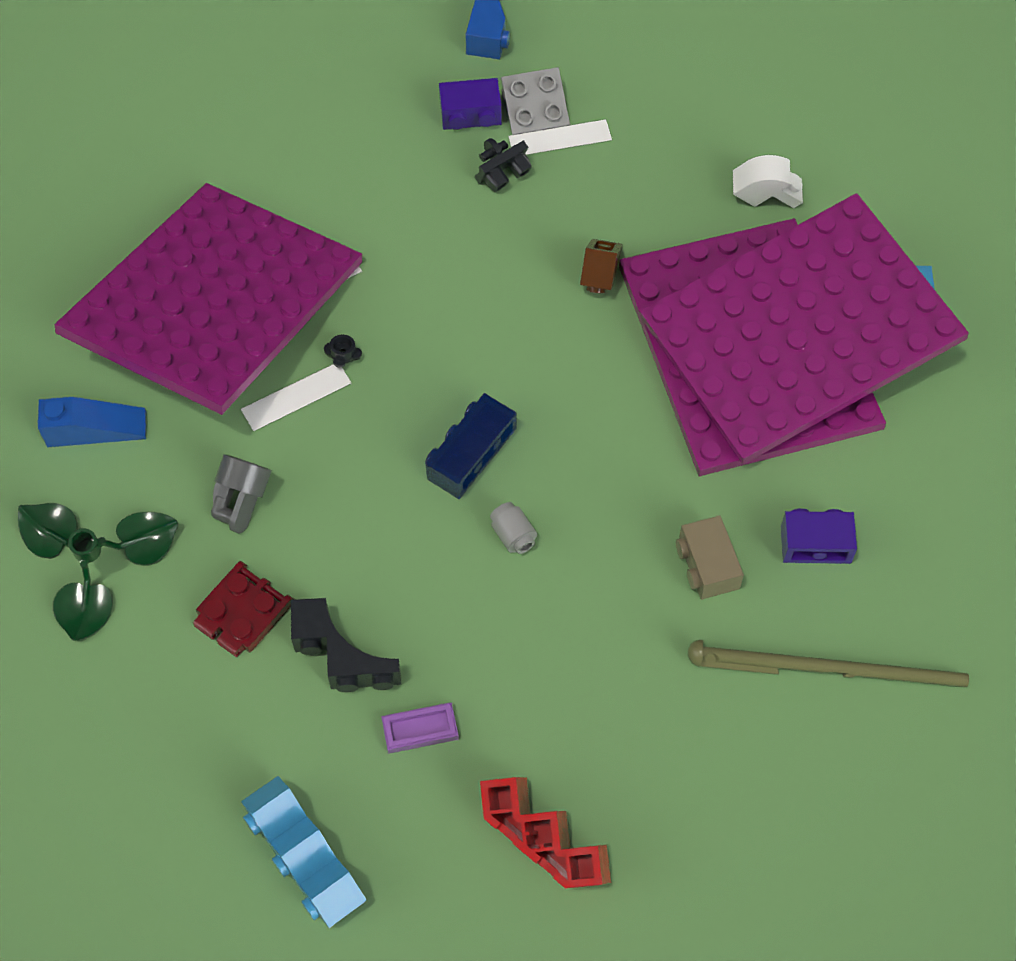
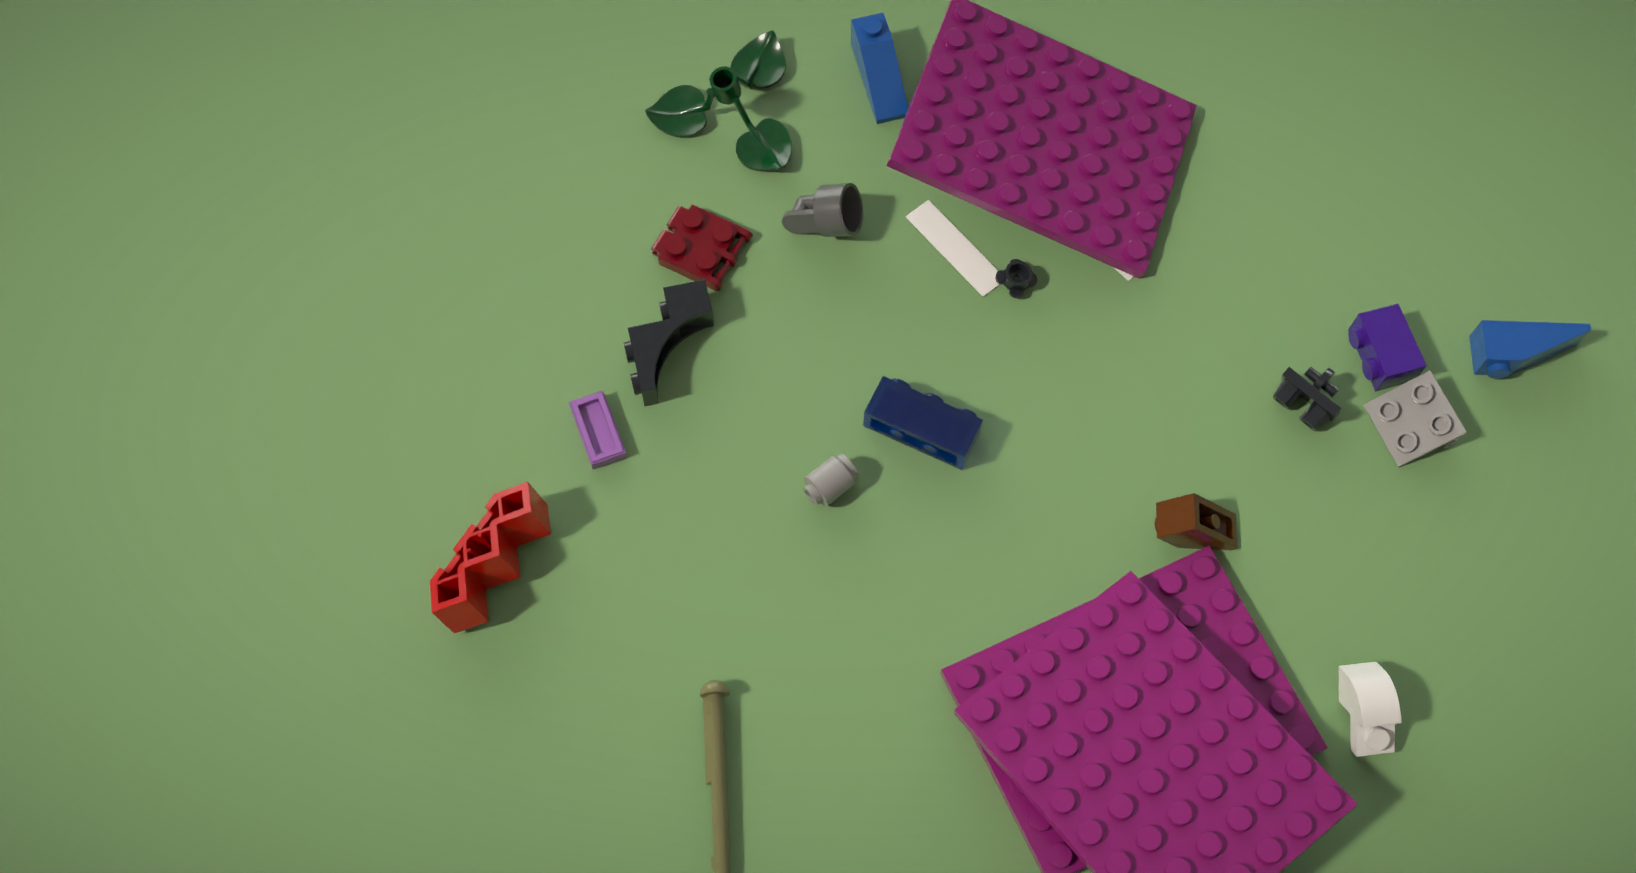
camera: 80 degrees right, 5 degrees up
(302, 852) = (453, 344): dark azure brick -> none
(563, 136) = (1376, 460): white sticker -> none
(709, 557) = (830, 689): dark tan brick -> none
(818, 536) = (878, 810): dark purple brick -> none

